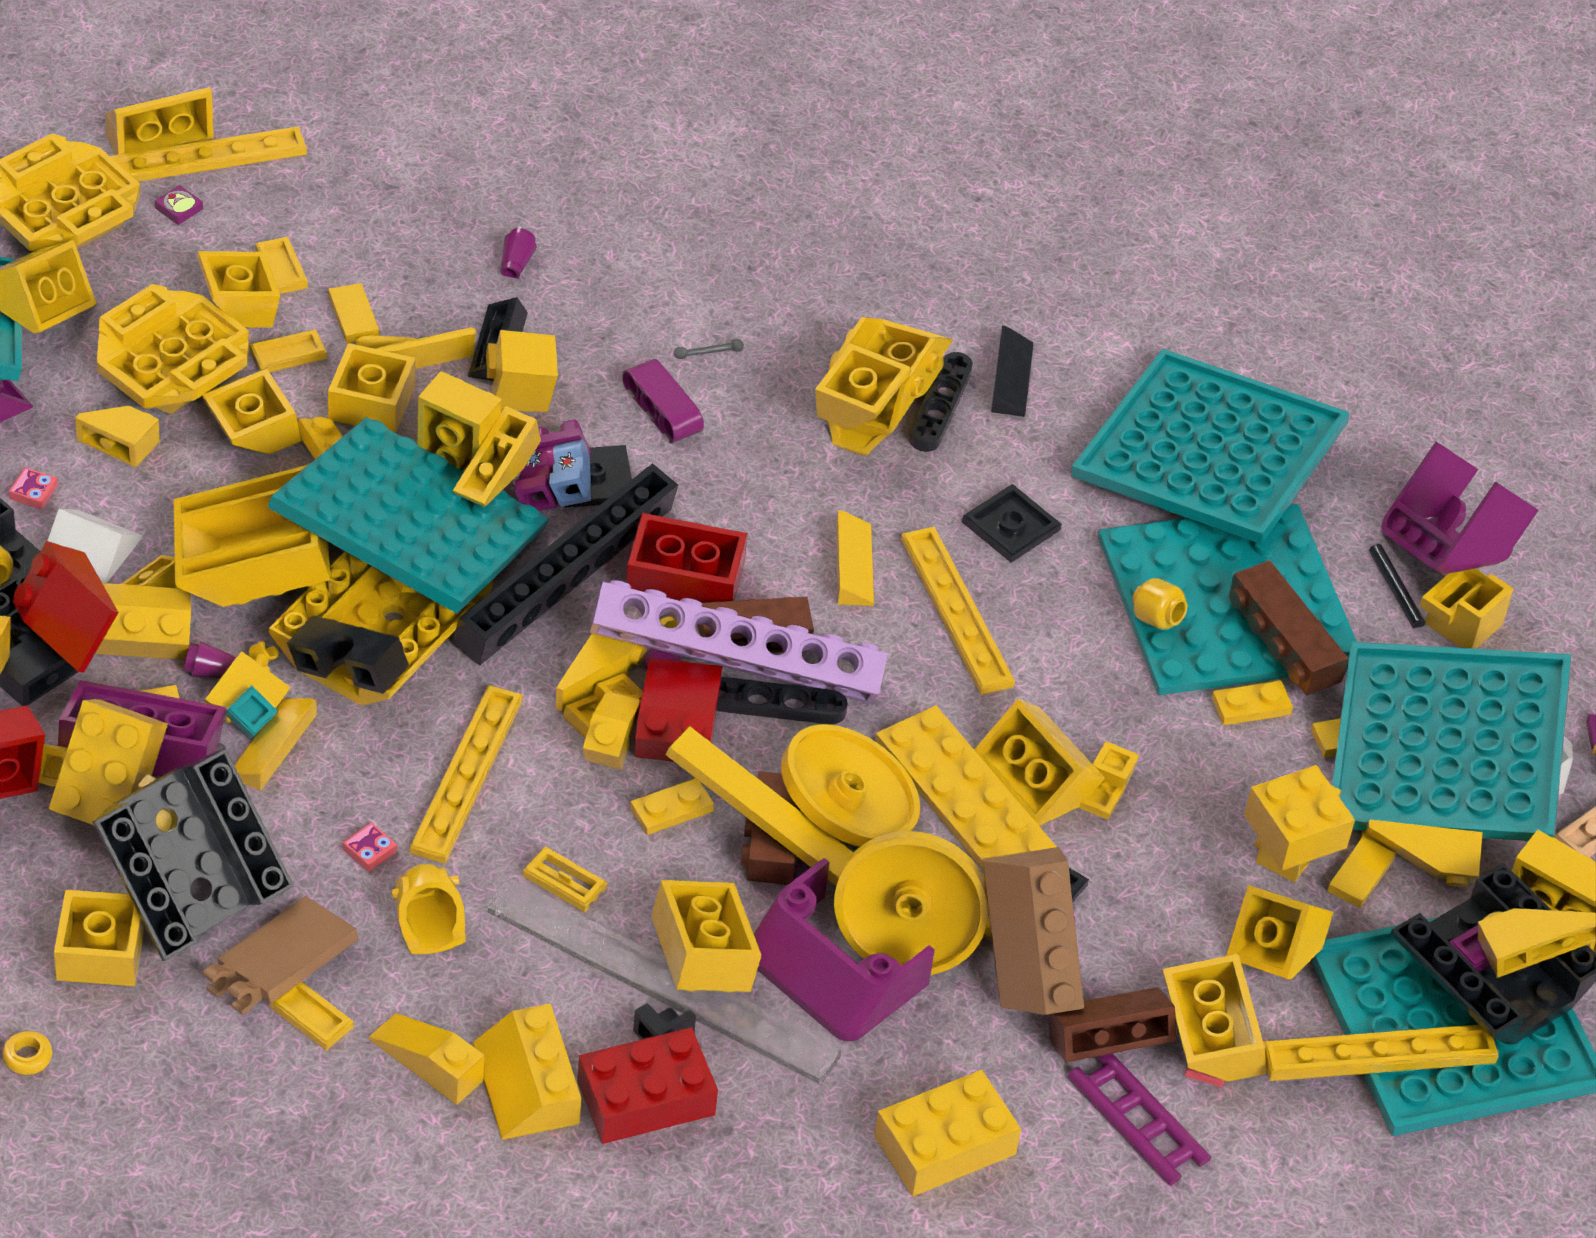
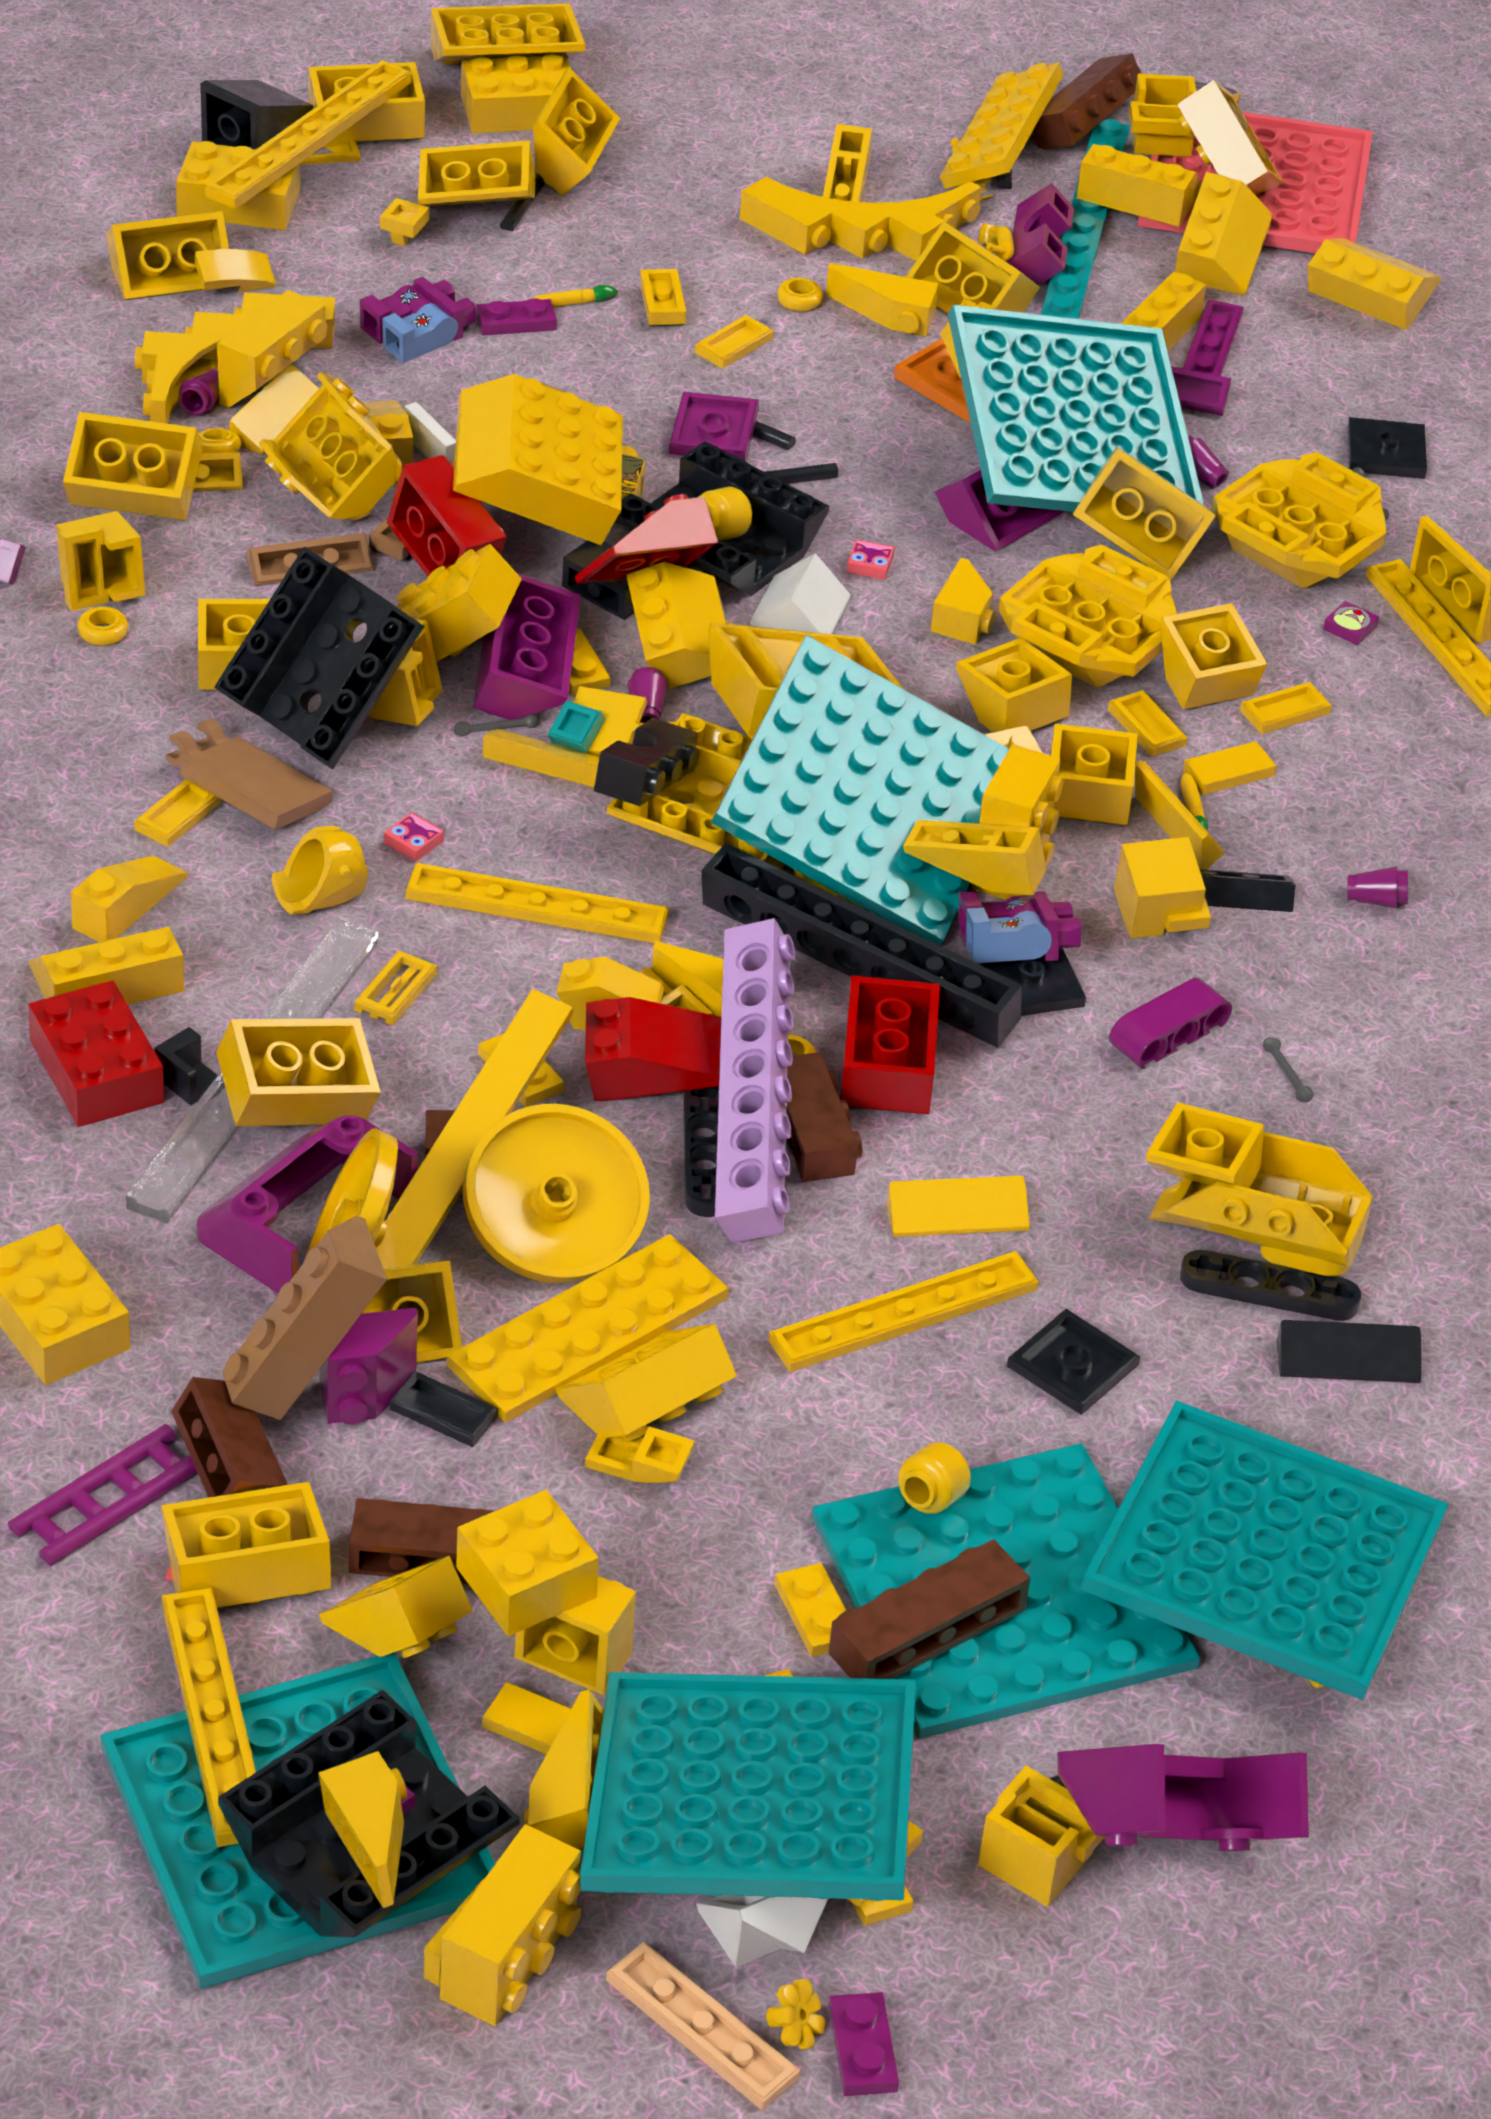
camera: 85 degrees right, 5 degrees down
(1199, 911) = (404, 1535): none -> copper brick

